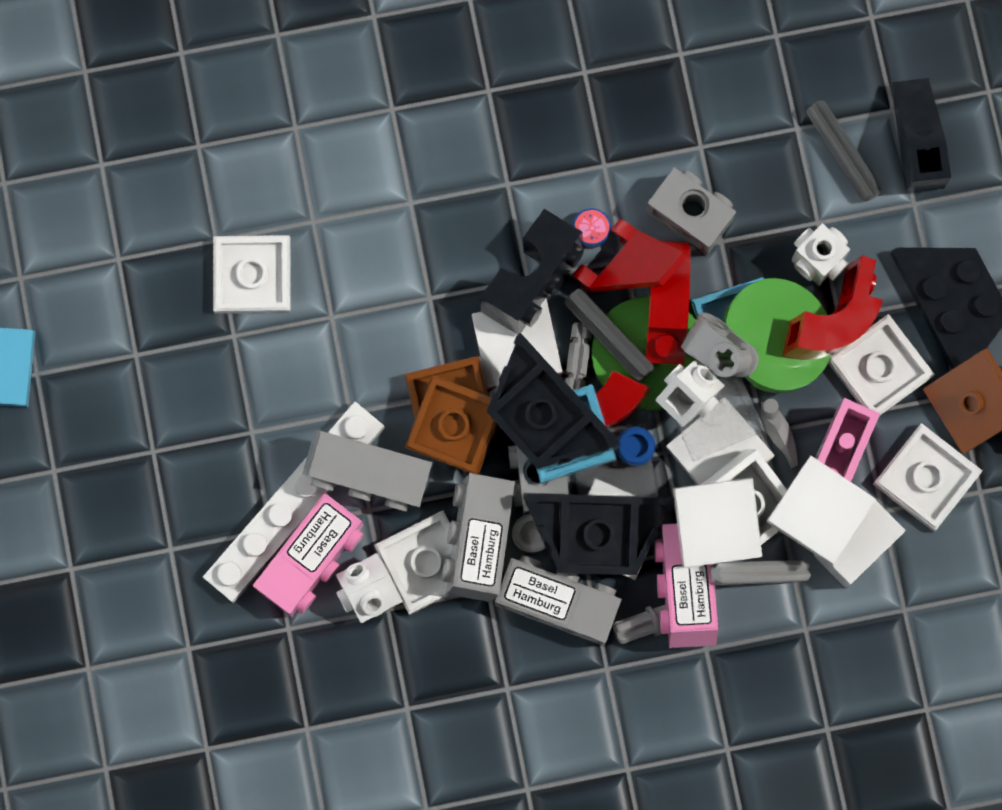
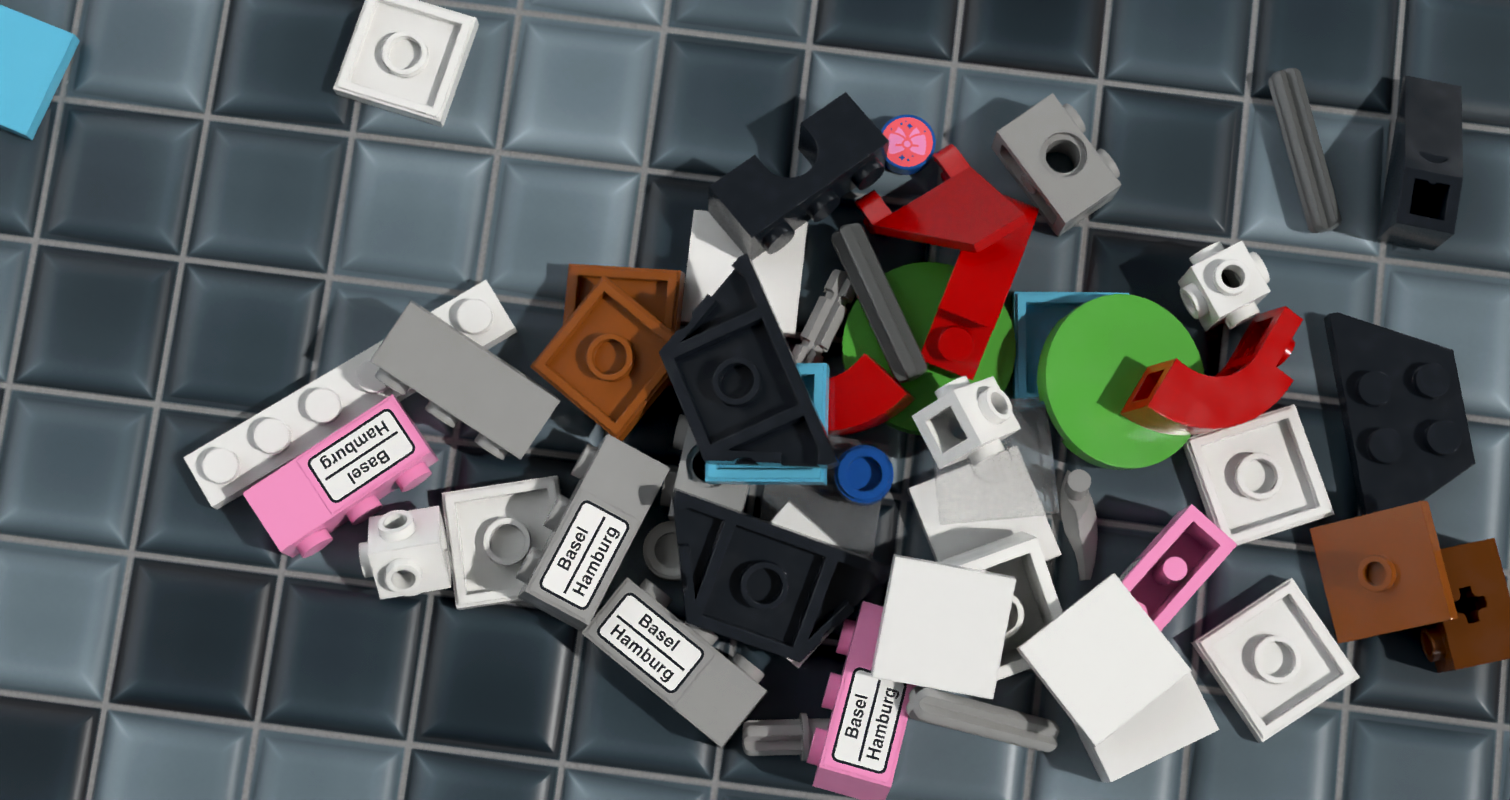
camera: 20 degrees right, 0 degrees up
(720, 348) = (1032, 371): light grey piece -> none

